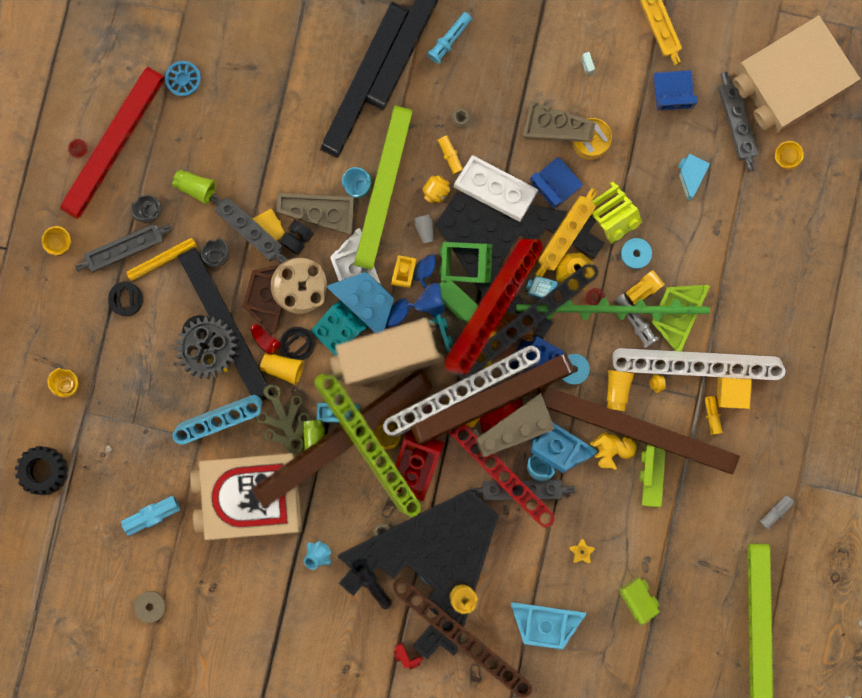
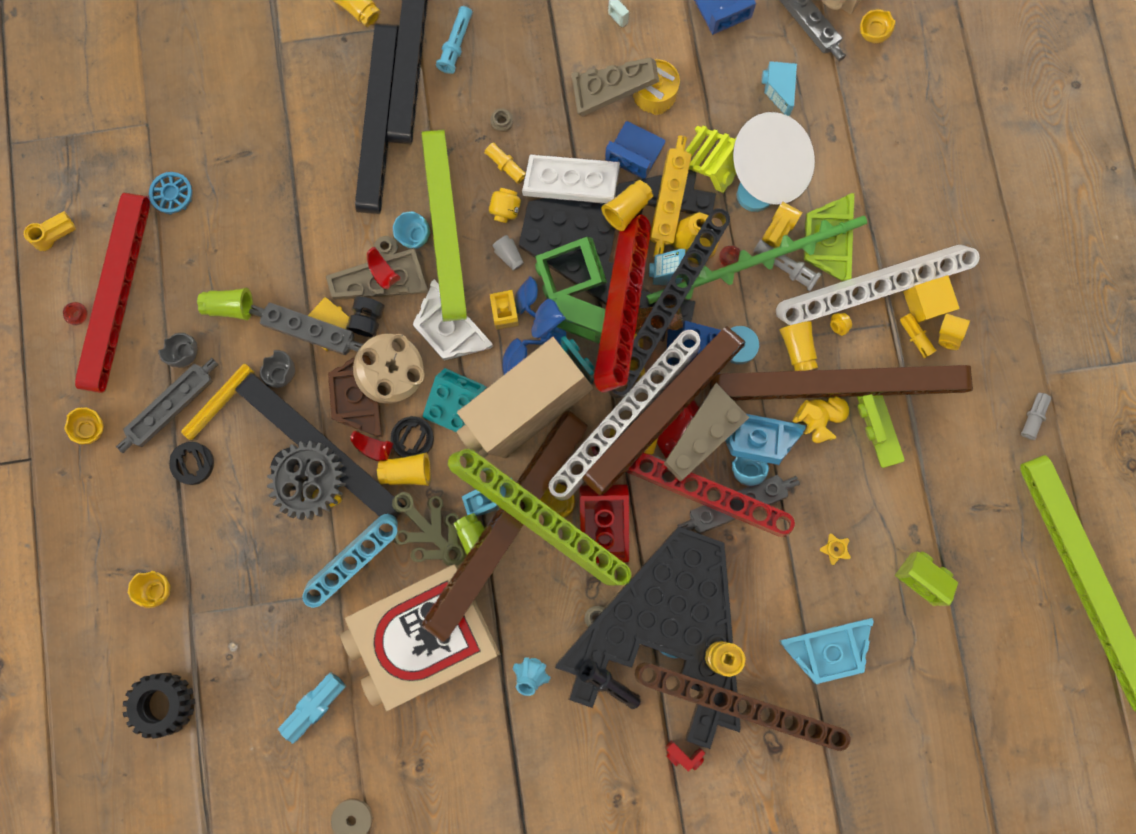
camera: 25 degrees left, 5 degrees down
(82, 74) = (50, 230): none -> yellow piece
(322, 207) = (380, 269): none -> red helmet
(336, 191) = (386, 240): none -> dark tan plate
(365, 299) = (470, 354): dark azure wing -> none
(530, 227) = (627, 205): none -> yellow plant
(660, 233) = (774, 158): none -> white sticker
(738, 423) = (953, 331): none -> yellow piece

